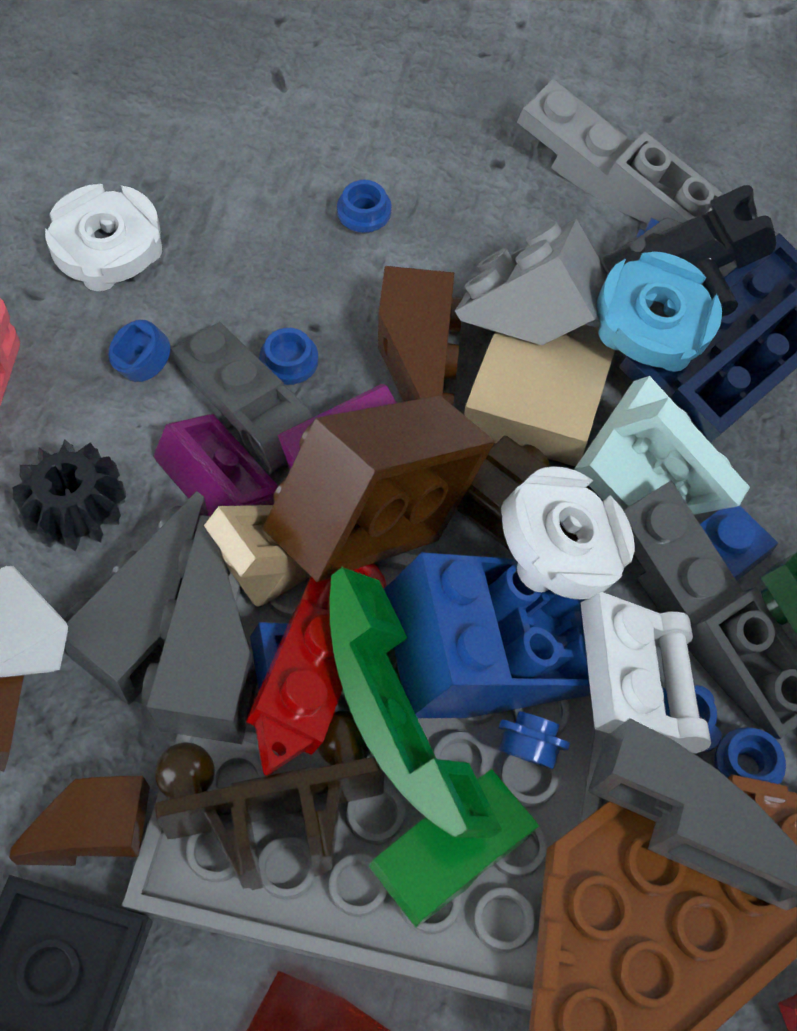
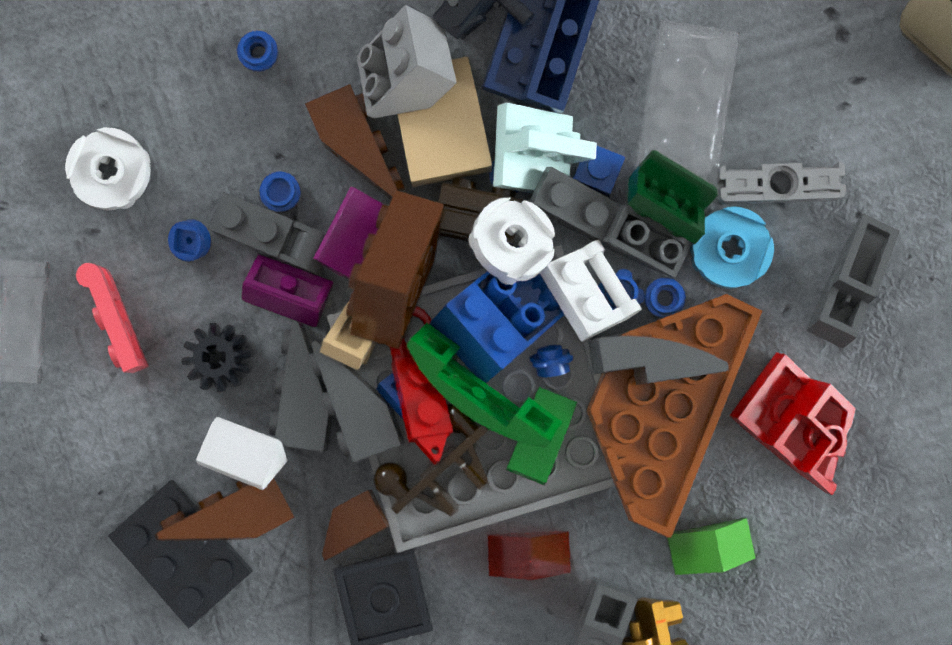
camera: 30 degrees left, 25 degrees up
(640, 333) = (503, 31): medium azure plate -> none

